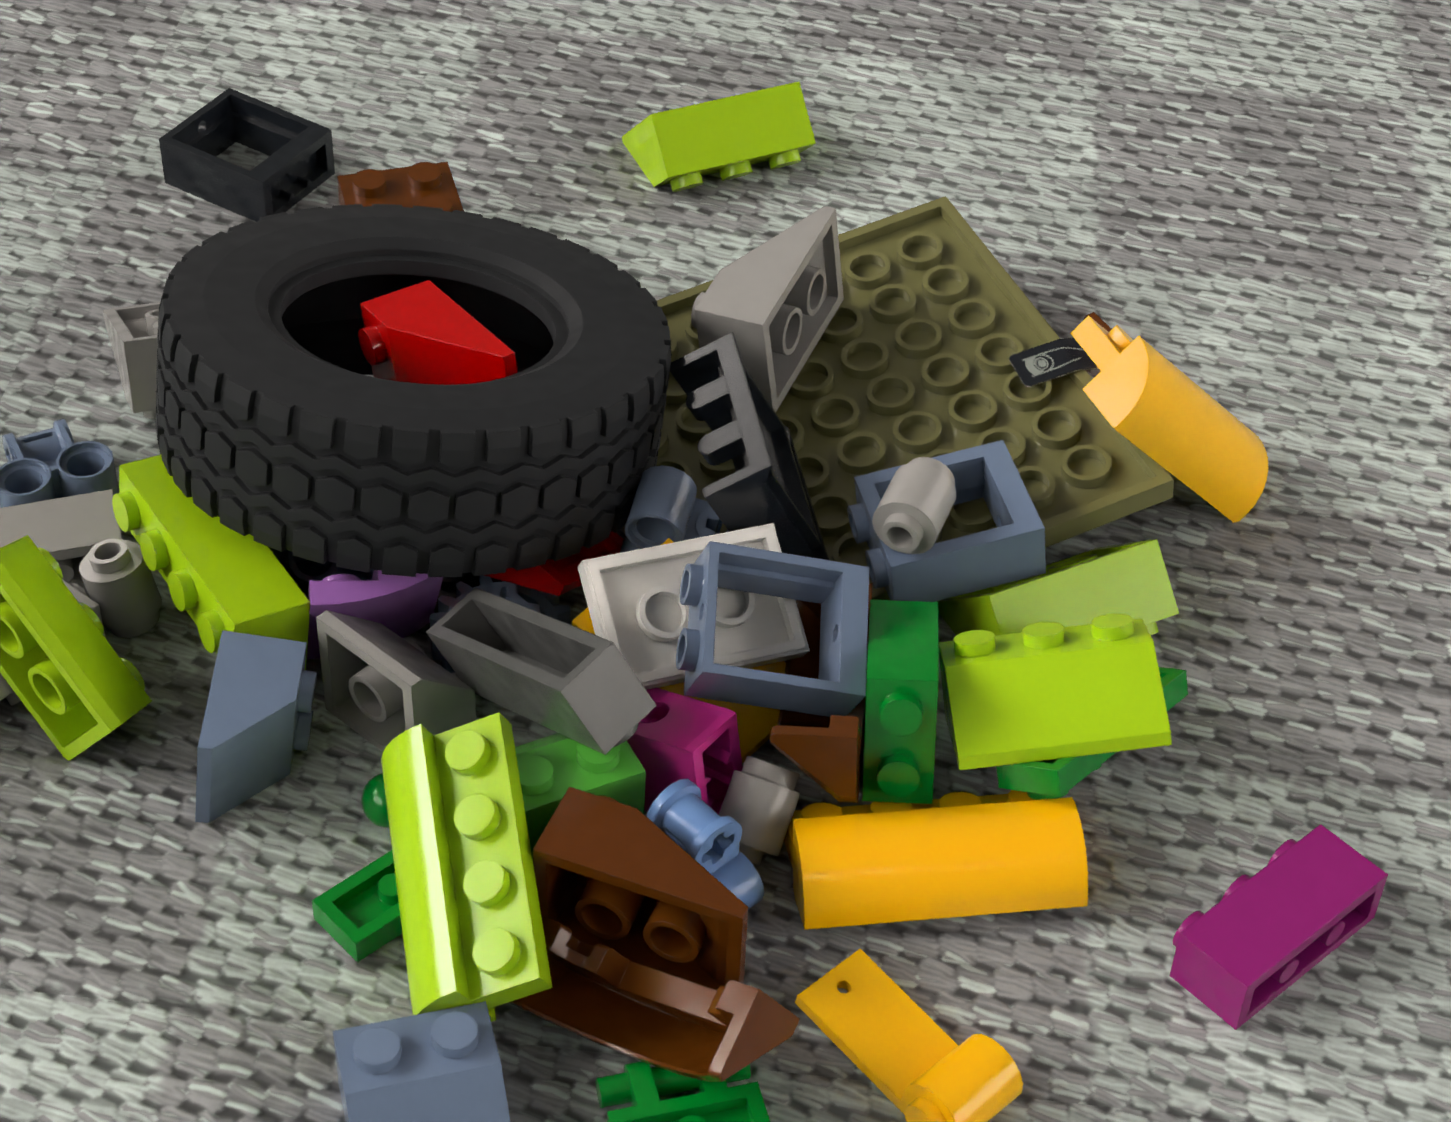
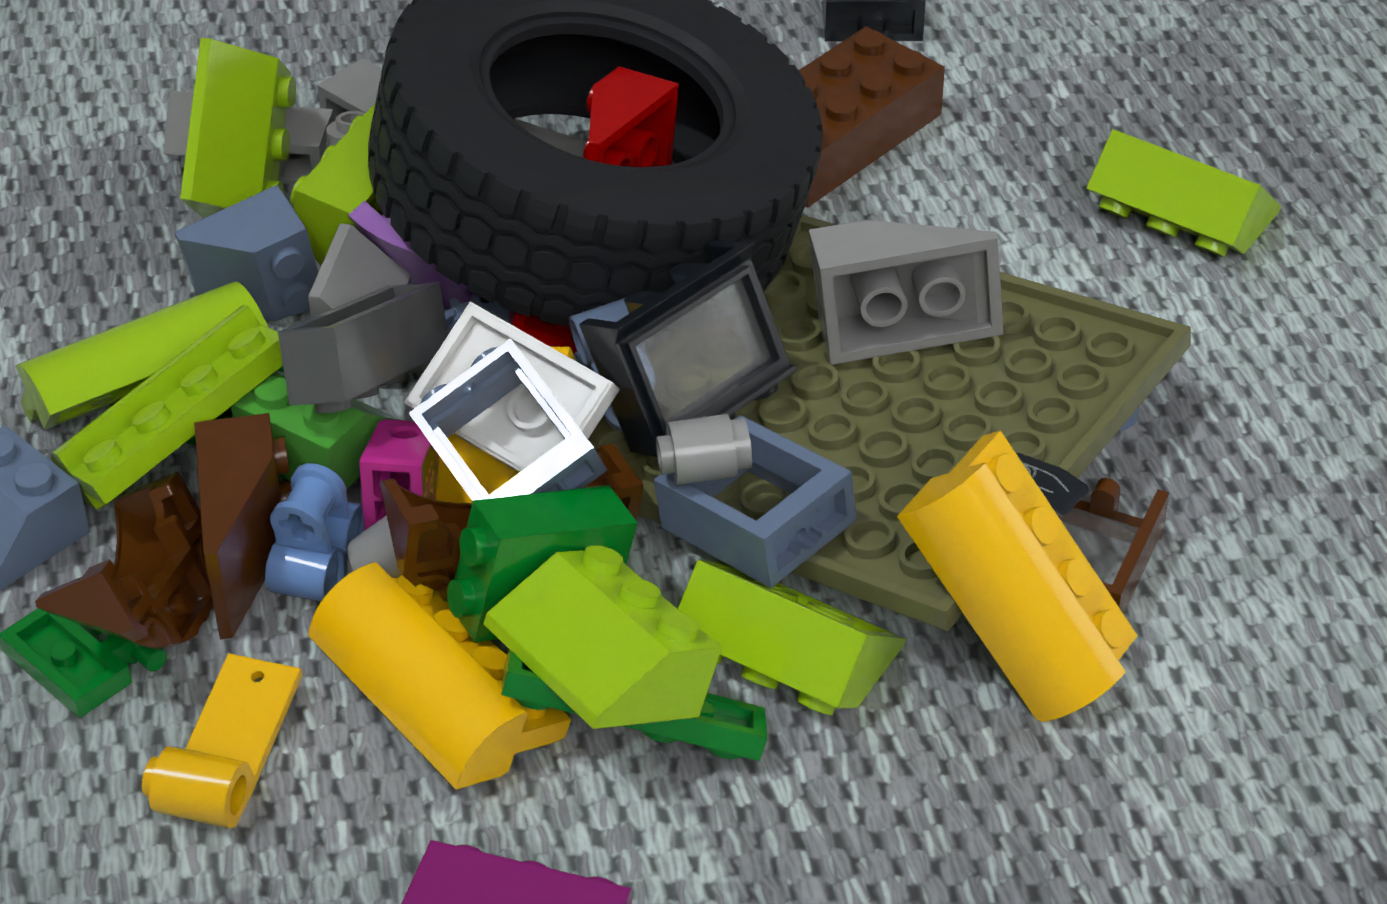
camera: 60 degrees right, 0 degrees up
(311, 884) = (121, 358): none -> lime brick

